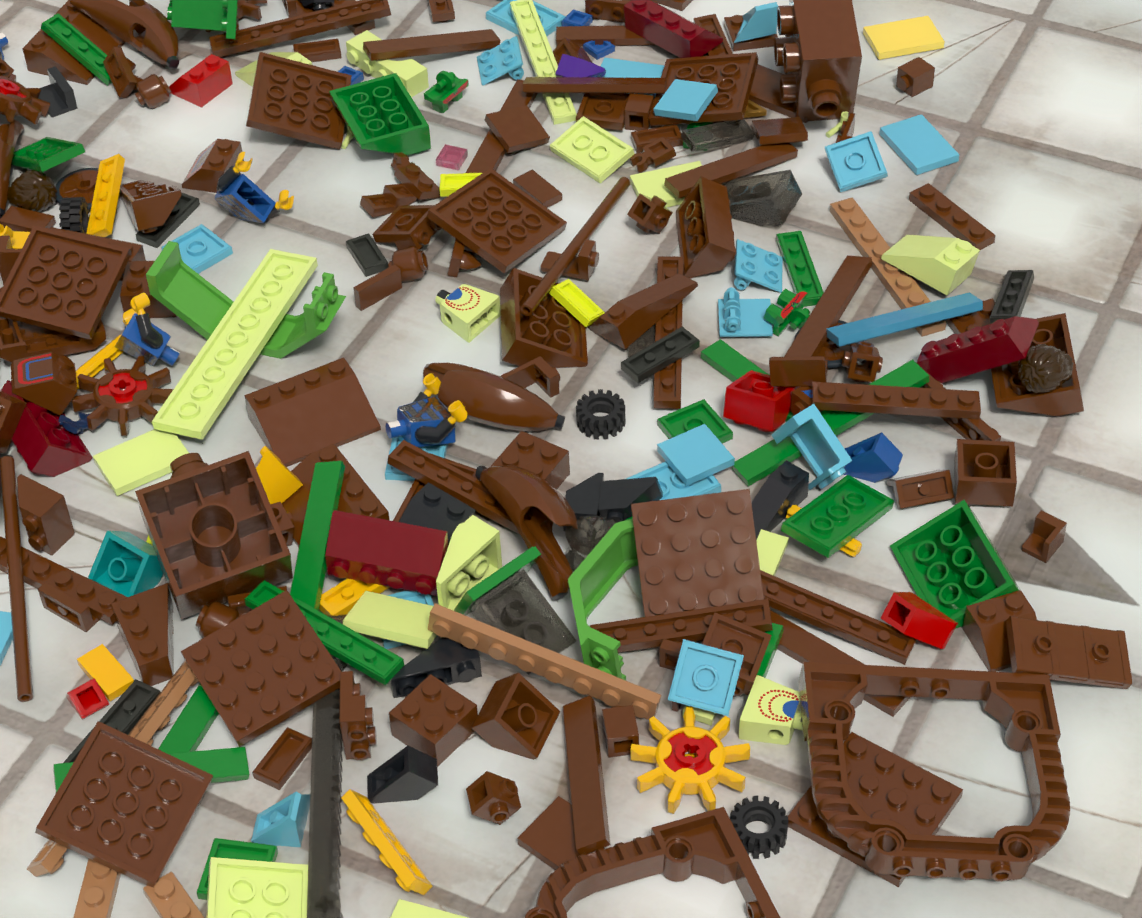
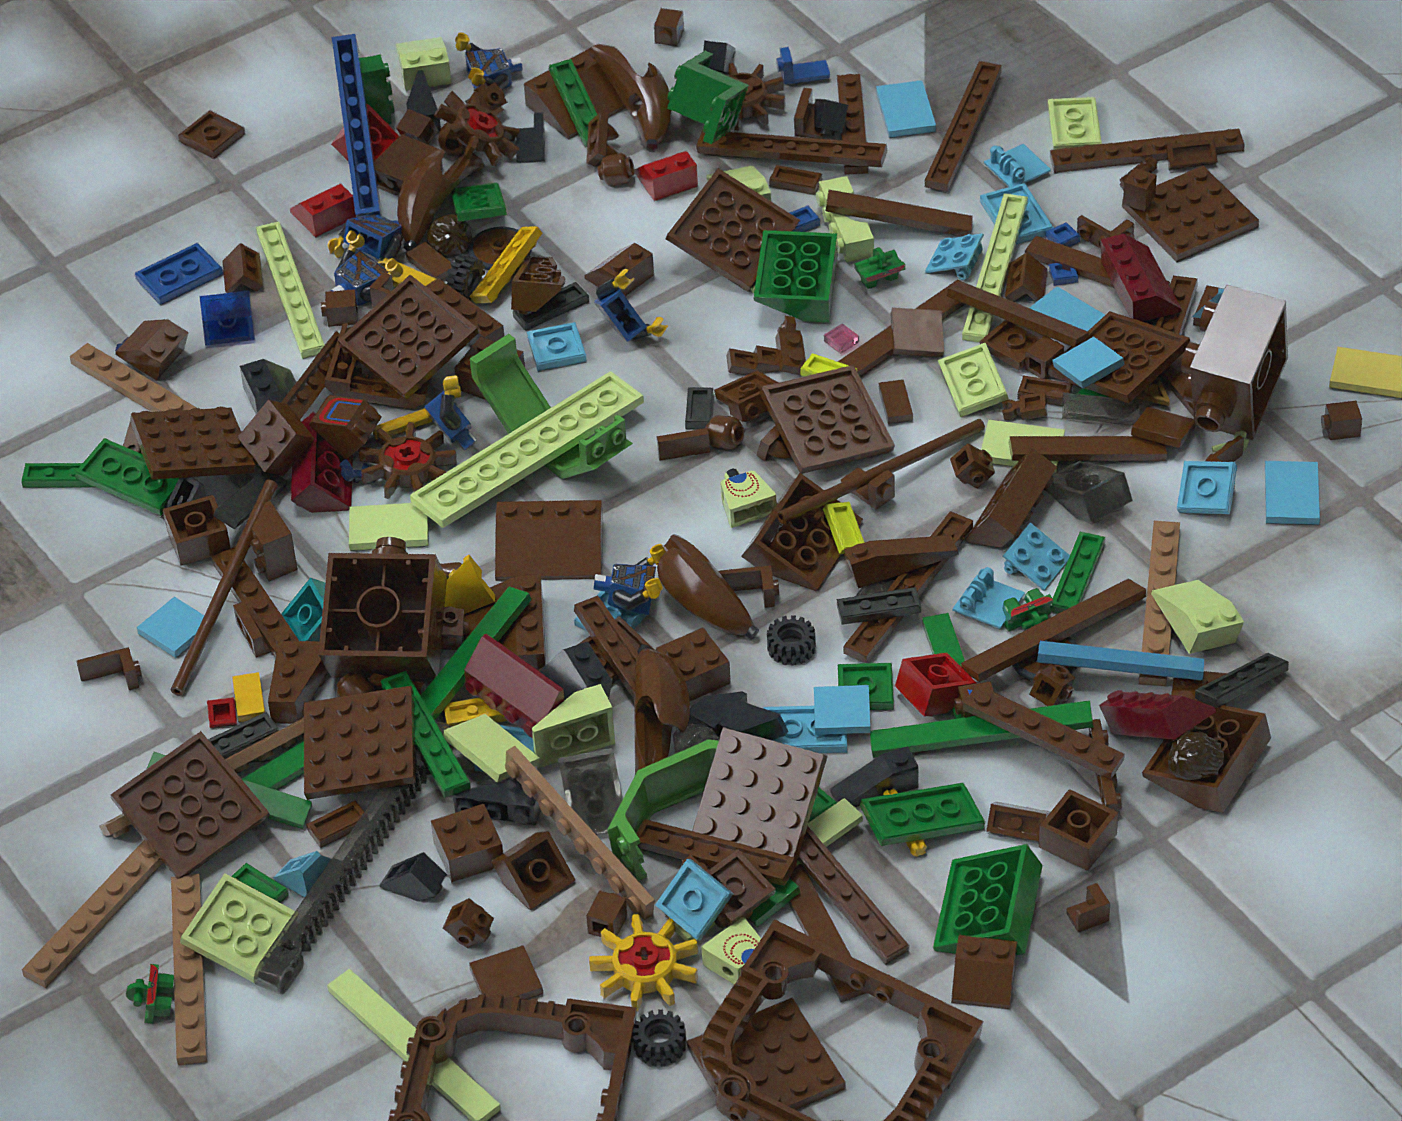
camera: 30 degrees right, 0 degrees up
(355, 719) = (402, 813): reddish brown plate -> none
(380, 835) = (367, 922): yellow plate -> none
(523, 561) = (621, 744): green tile -> none
(576, 67) = (1014, 290): dark purple slope -> none
(586, 776) = (552, 936): reddish brown tile -> none
(797, 370) = (973, 670): reddish brown panel -> none
(816, 444) = (936, 718): medium azure panel -> none
(873, 459) = (991, 777): blue slope -> none
(918, 619) = (916, 929): red slope -> none
(951, 216) = (1261, 579): reddish brown plate -> none
(1069, 652) = (1019, 1011): reddish brown container -> none

